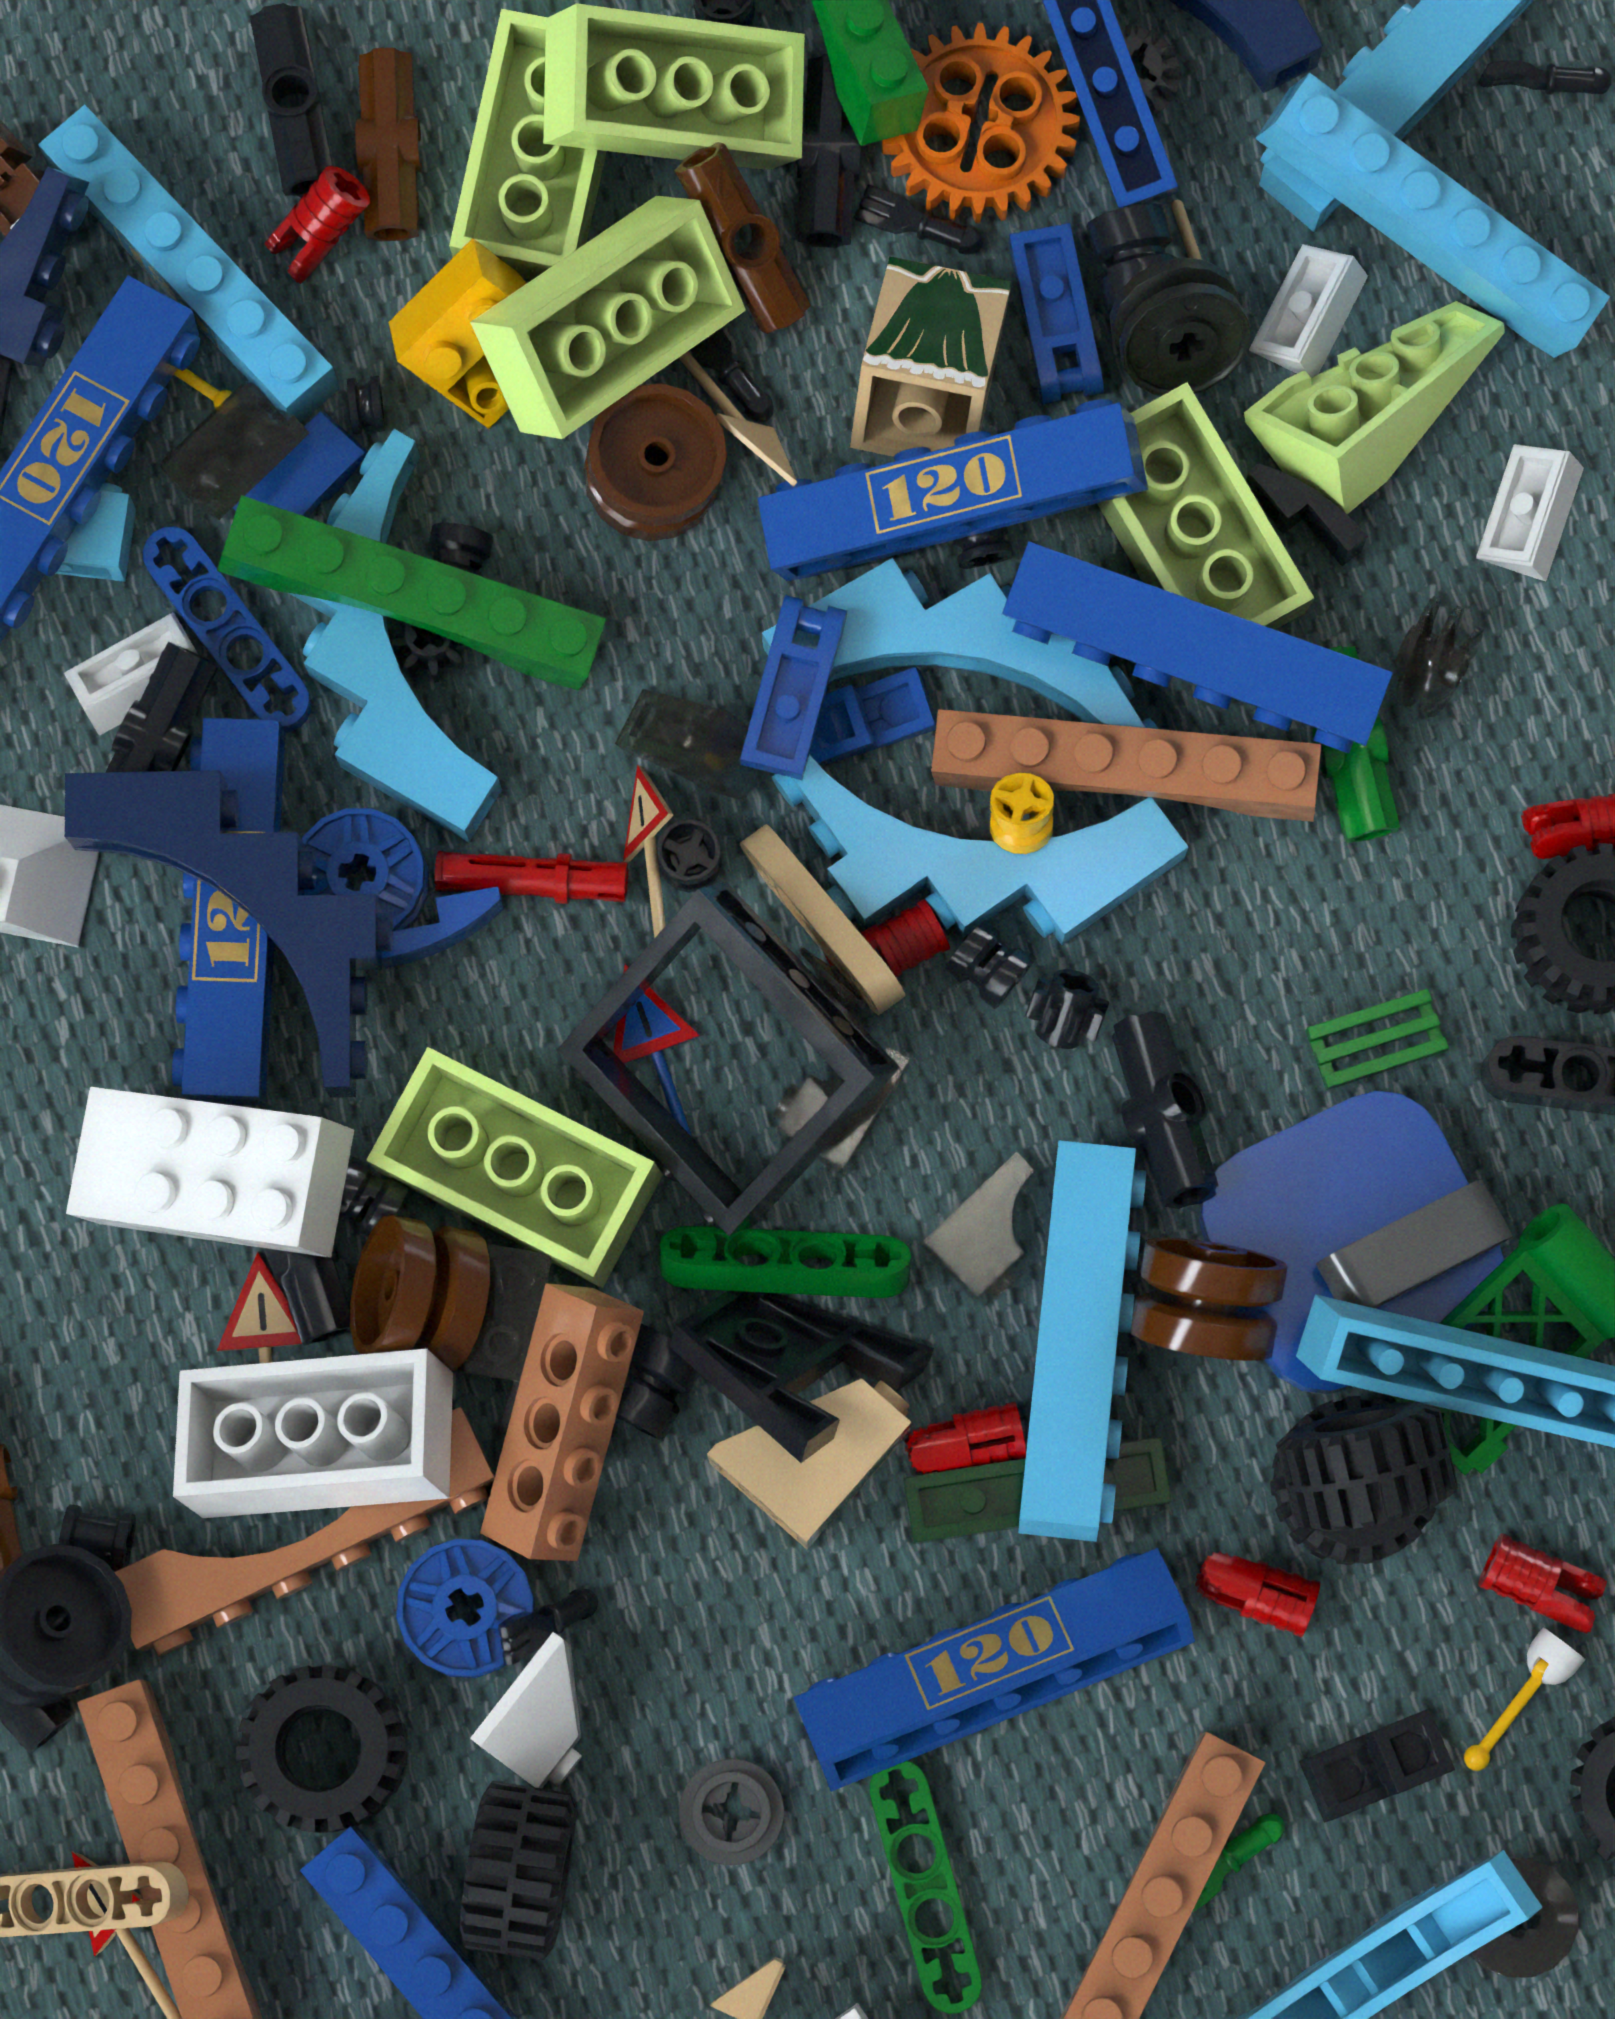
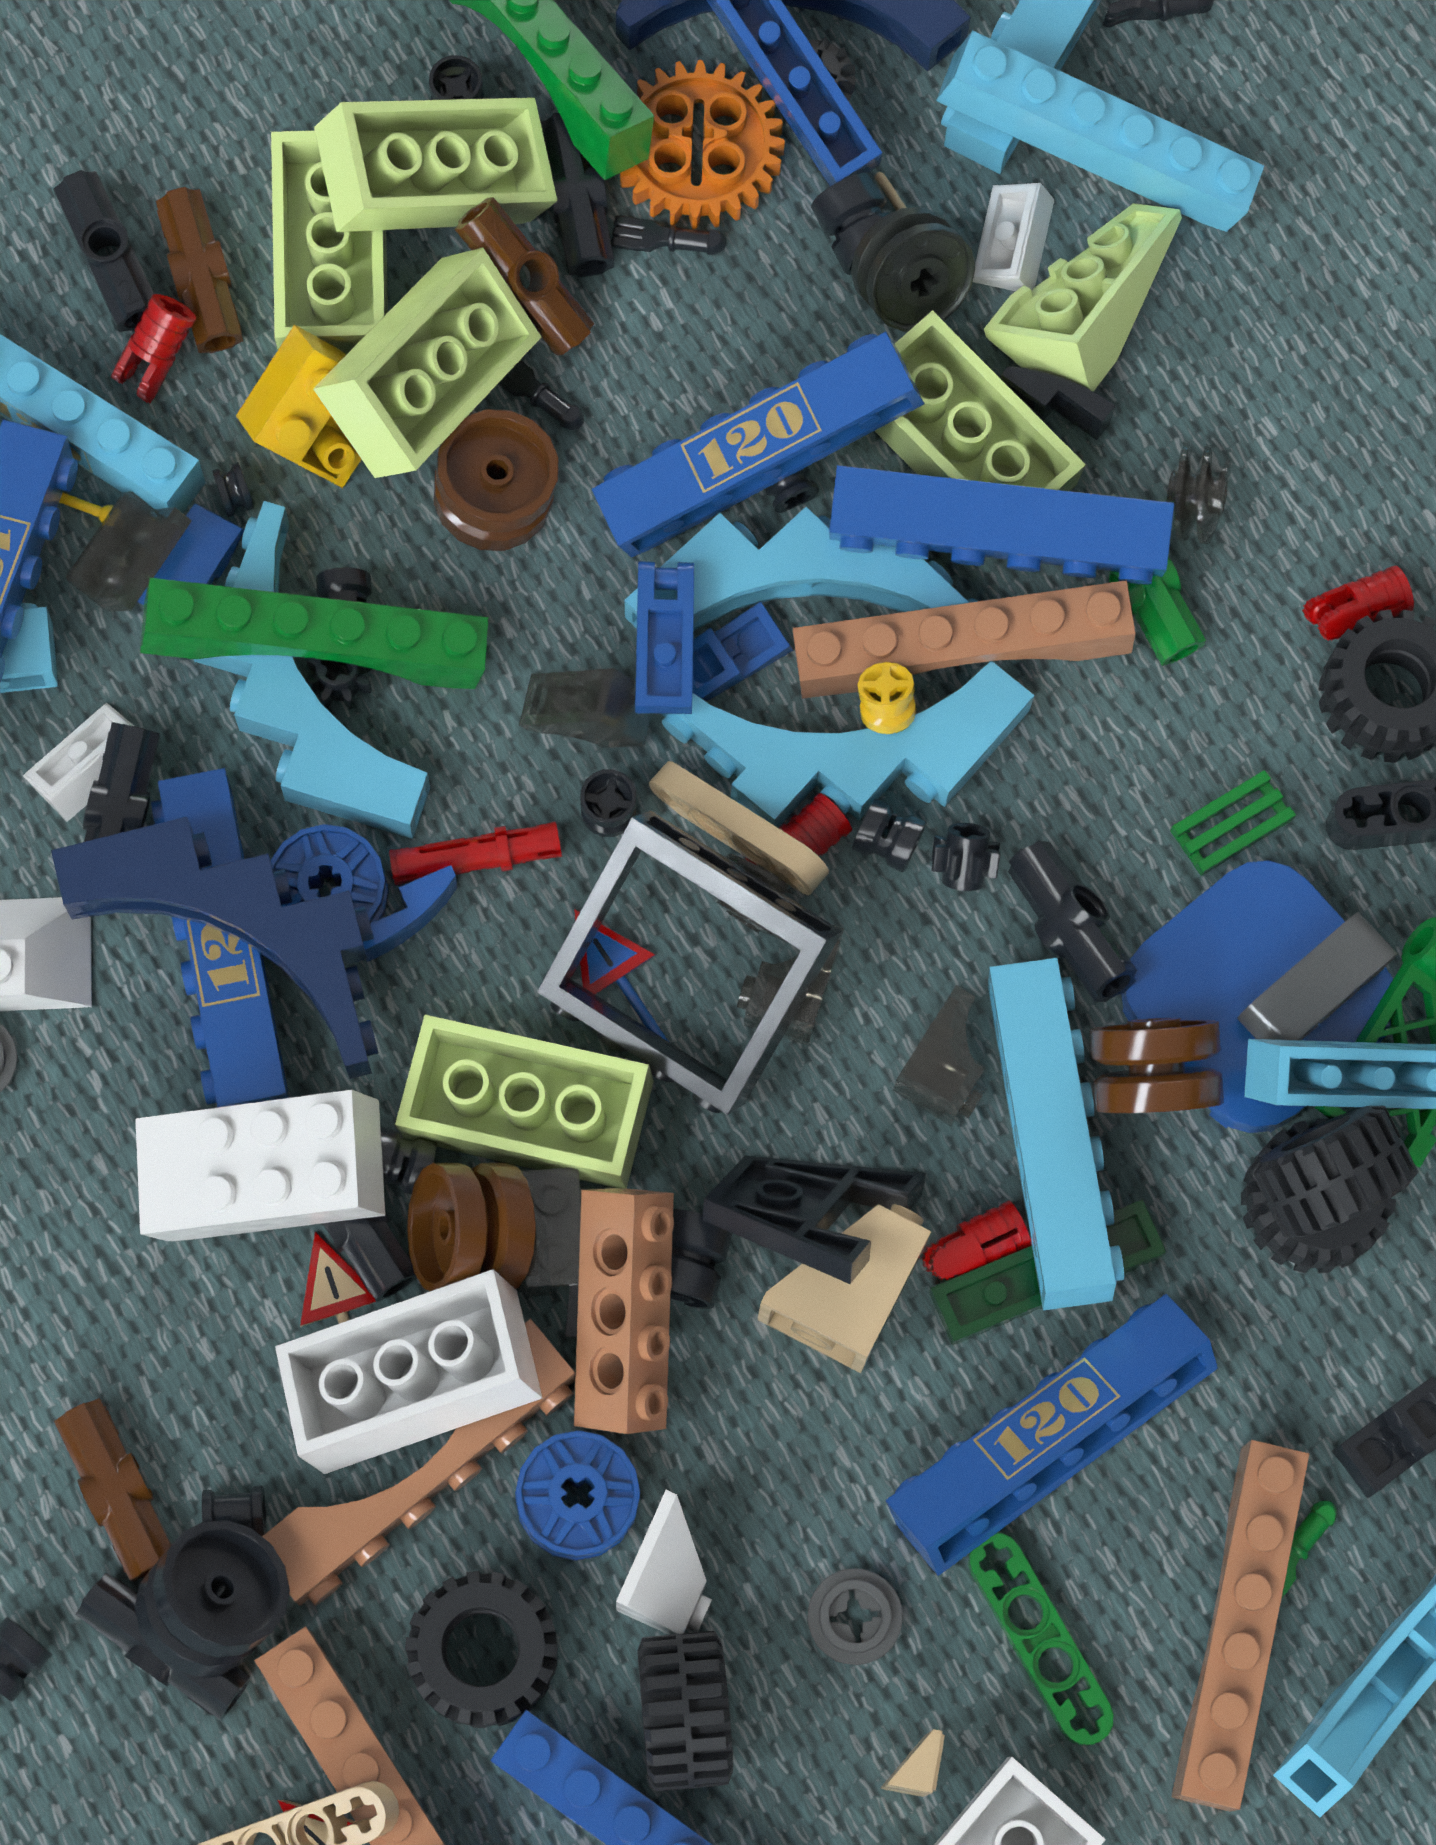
camera: 20 degrees left, 5 degrees down
(231, 627) = (162, 701): blue beam -> none
(529, 1630) = (641, 1498): black piece -> none
(646, 819) = (562, 780): tan piece -> none
(755, 436) = (575, 439): tan piece -> none
(784, 1268) = (697, 1147): green beam -> none
(928, 357) = (706, 342): slope -> none
(1055, 311) = (802, 283): blue plate -> none
(1259, 1591) = (1260, 1312): red hinge -> none
(1530, 510) = (1241, 358): white slope -> none

